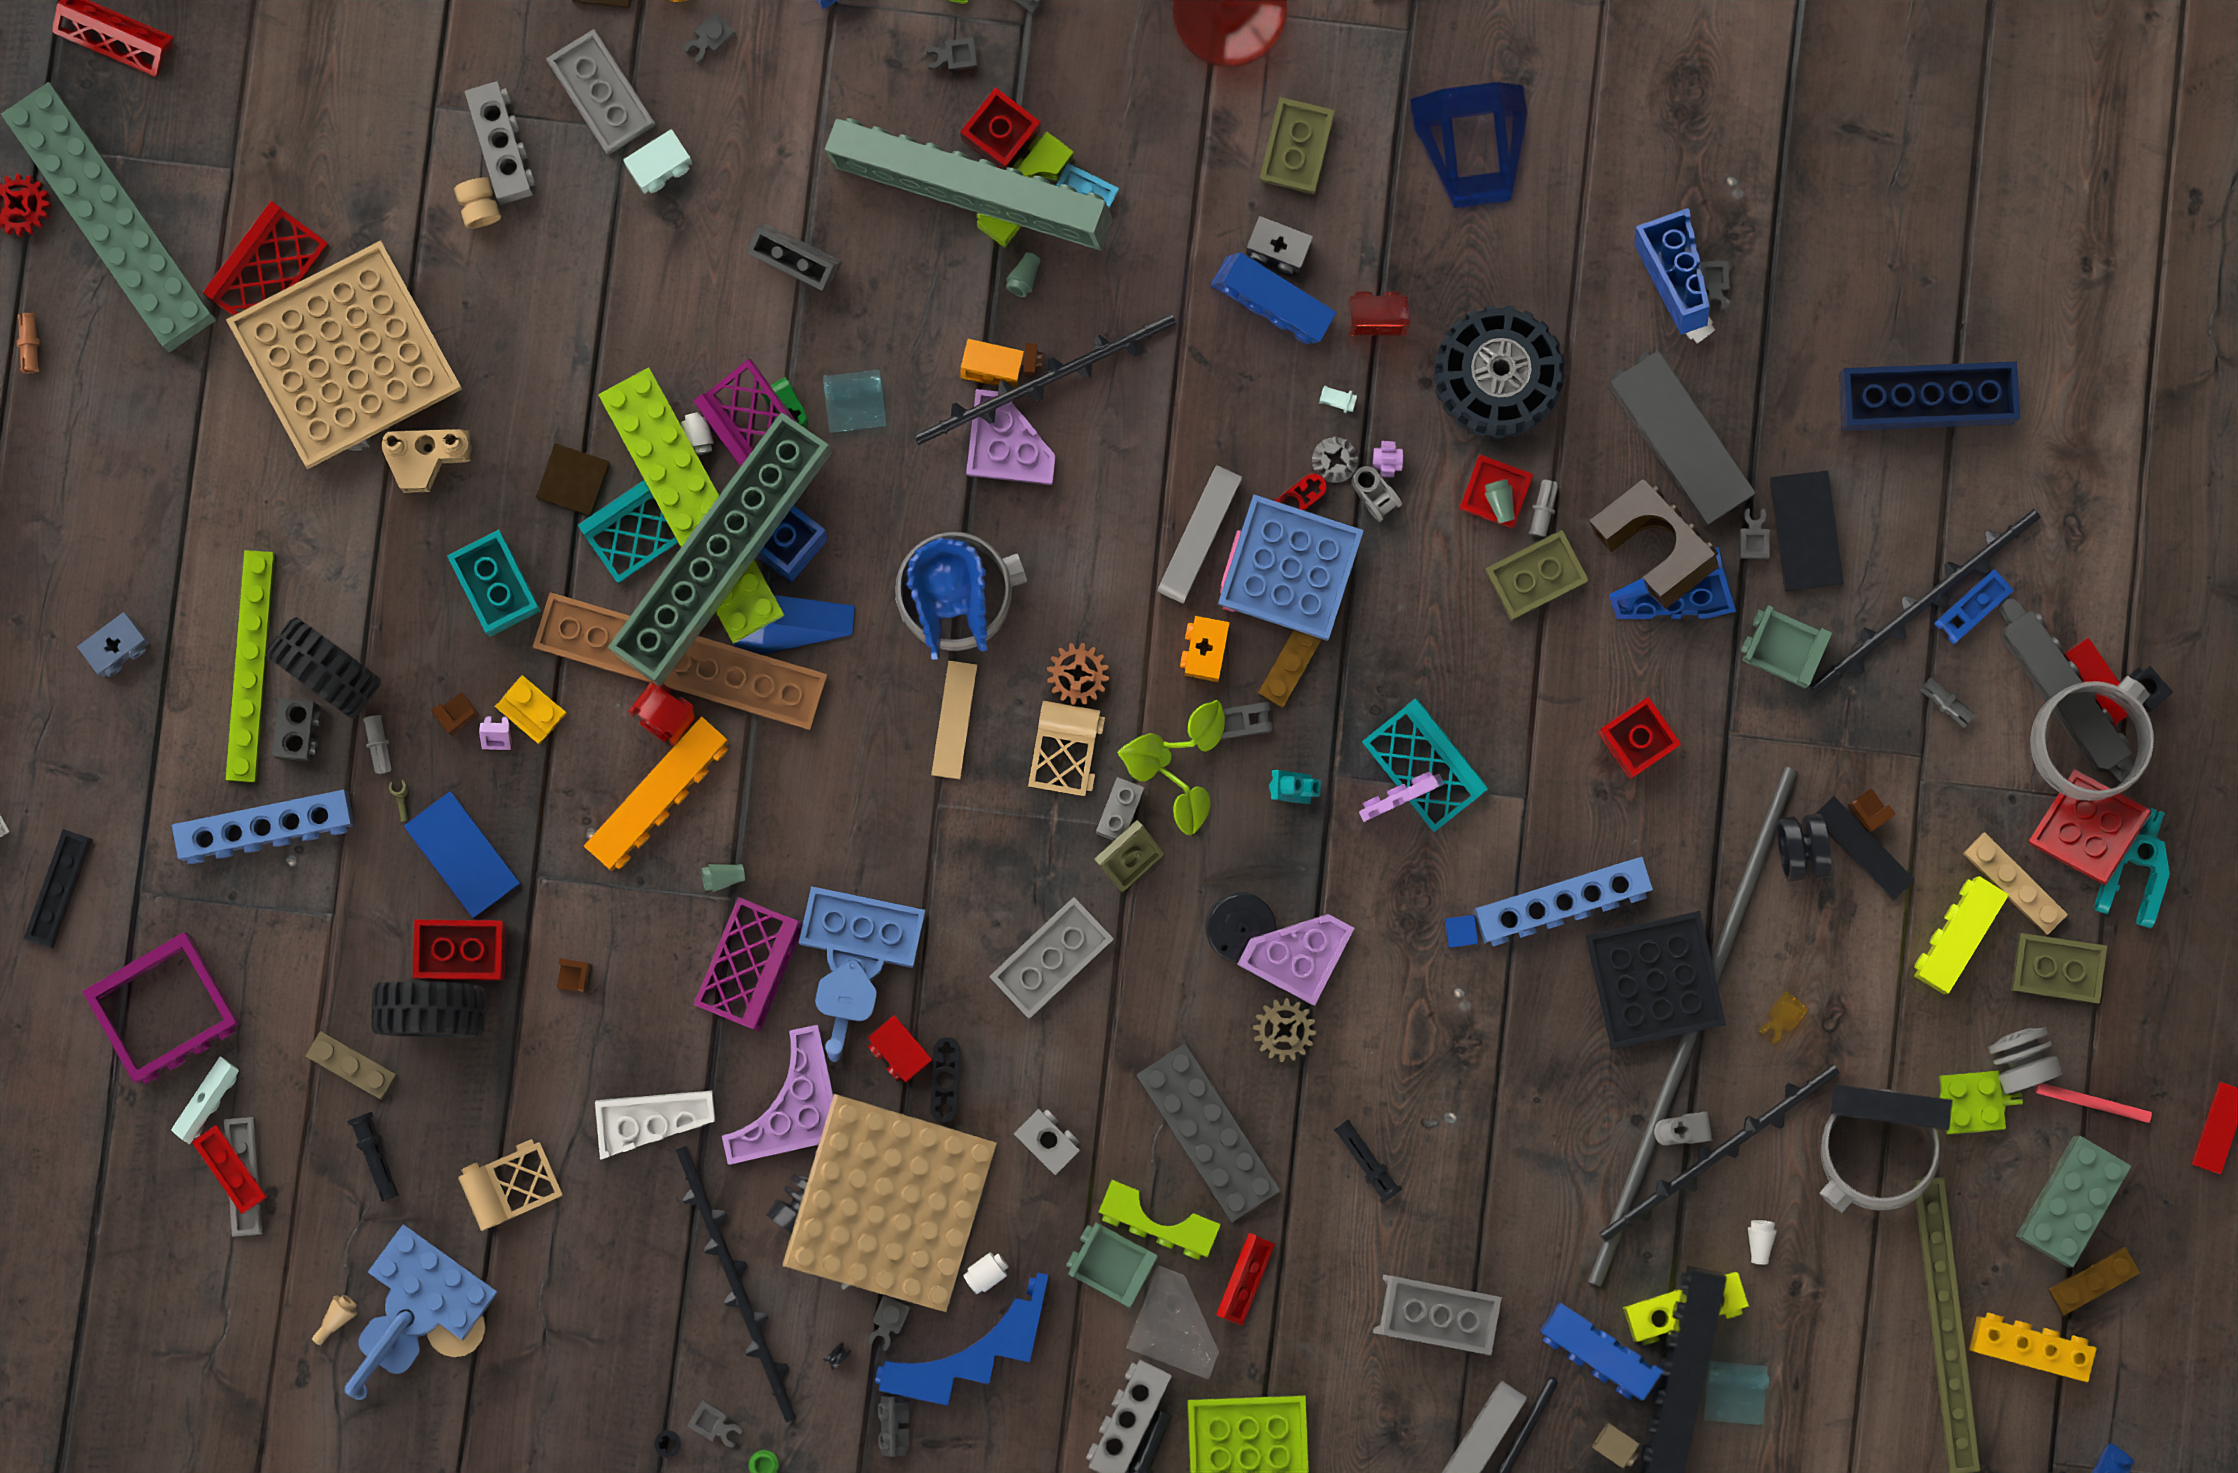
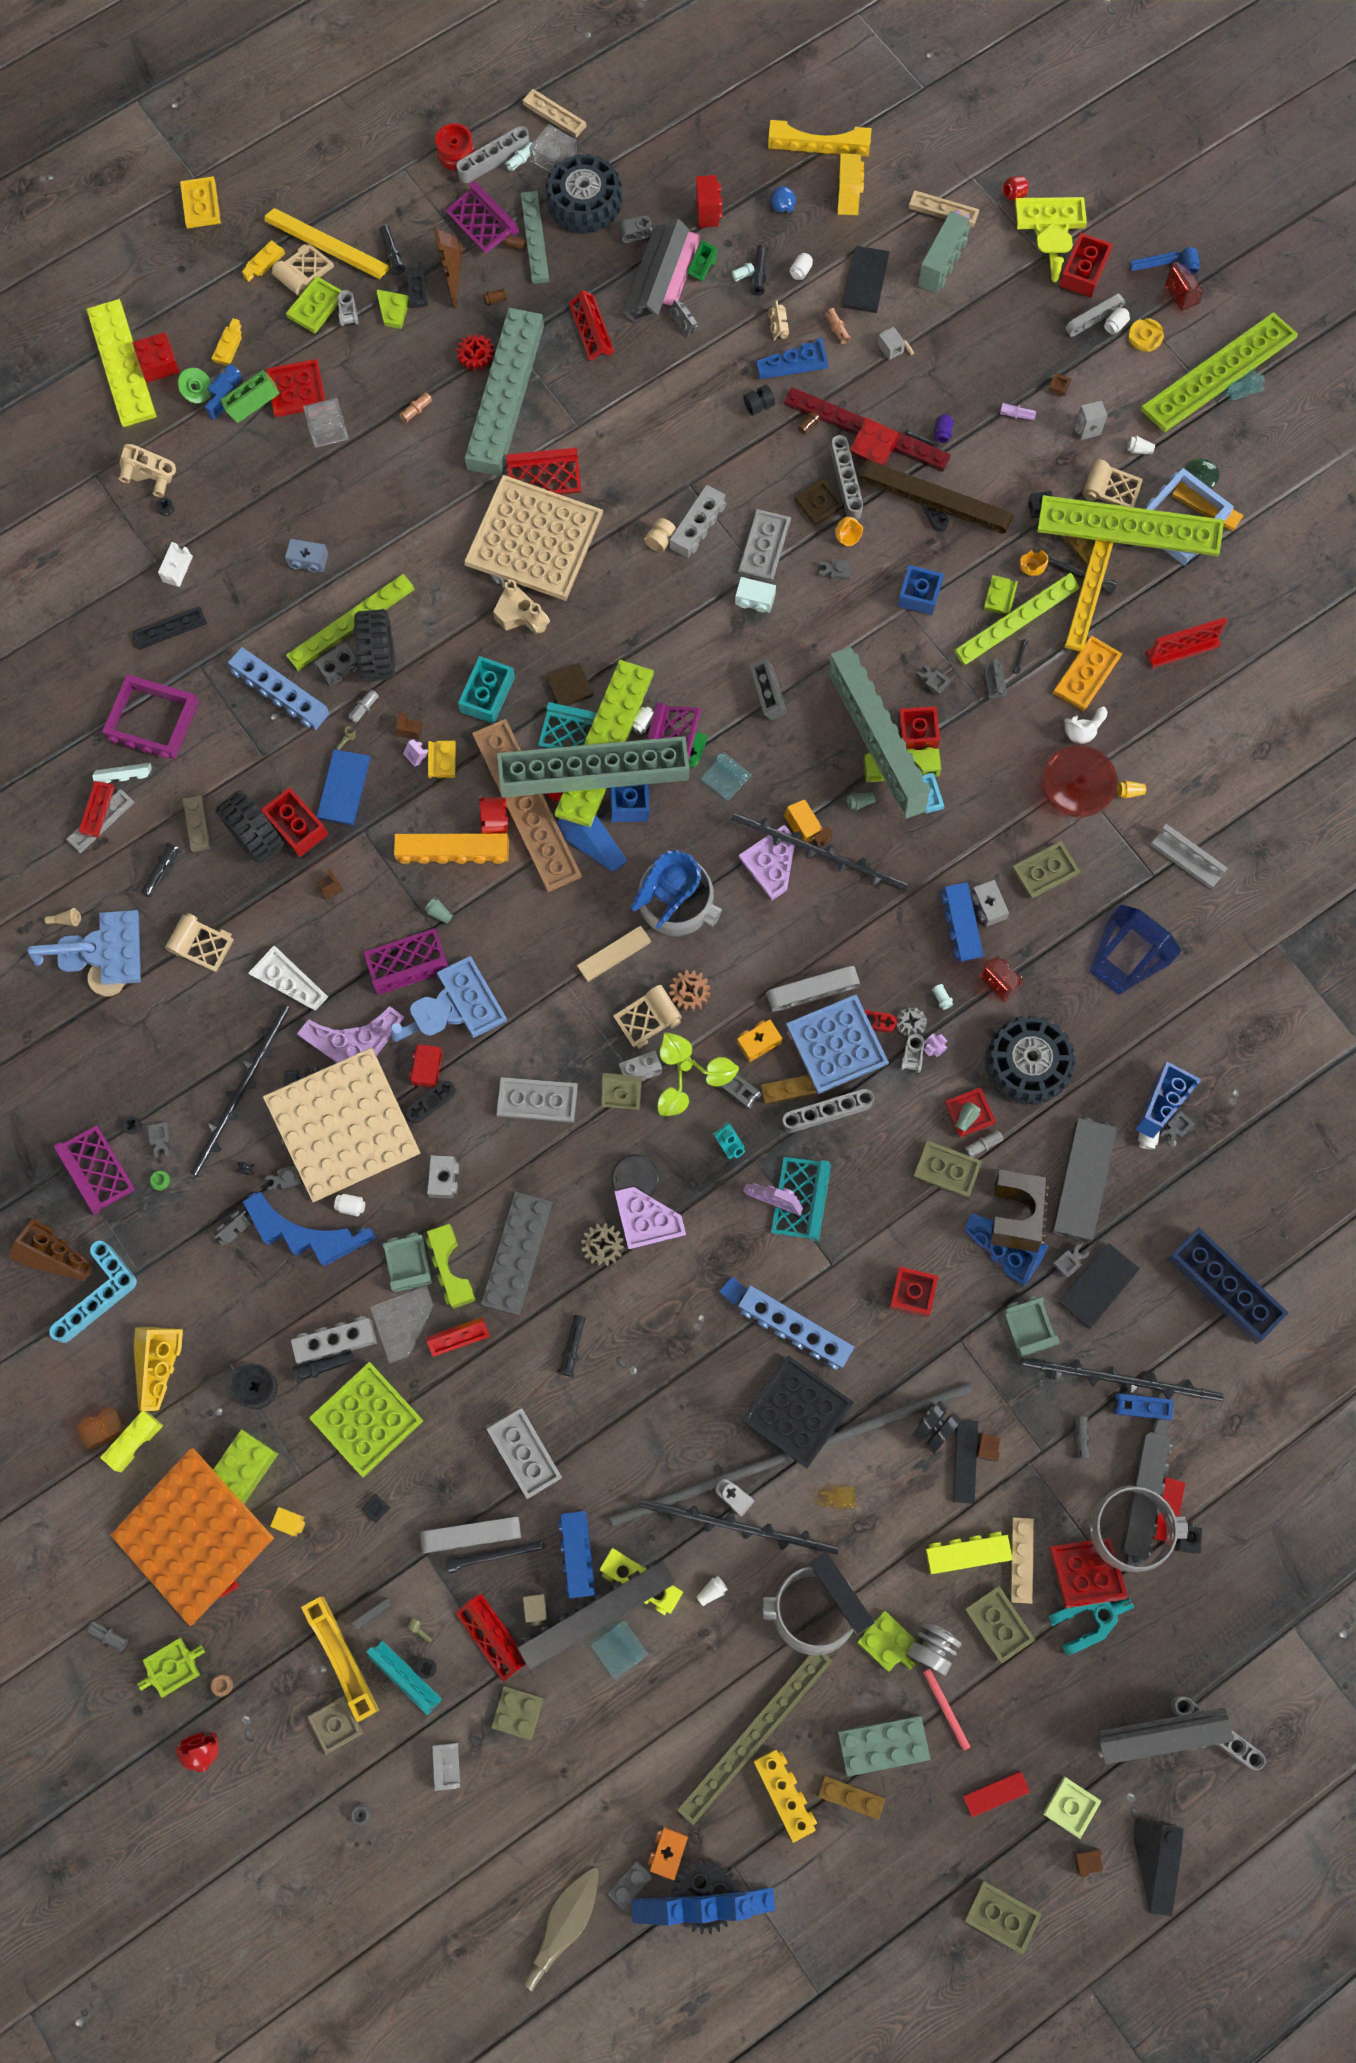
camera: 55 degrees right, 10 degrees down
(1360, 633) = (834, 1103): none -> light grey beam

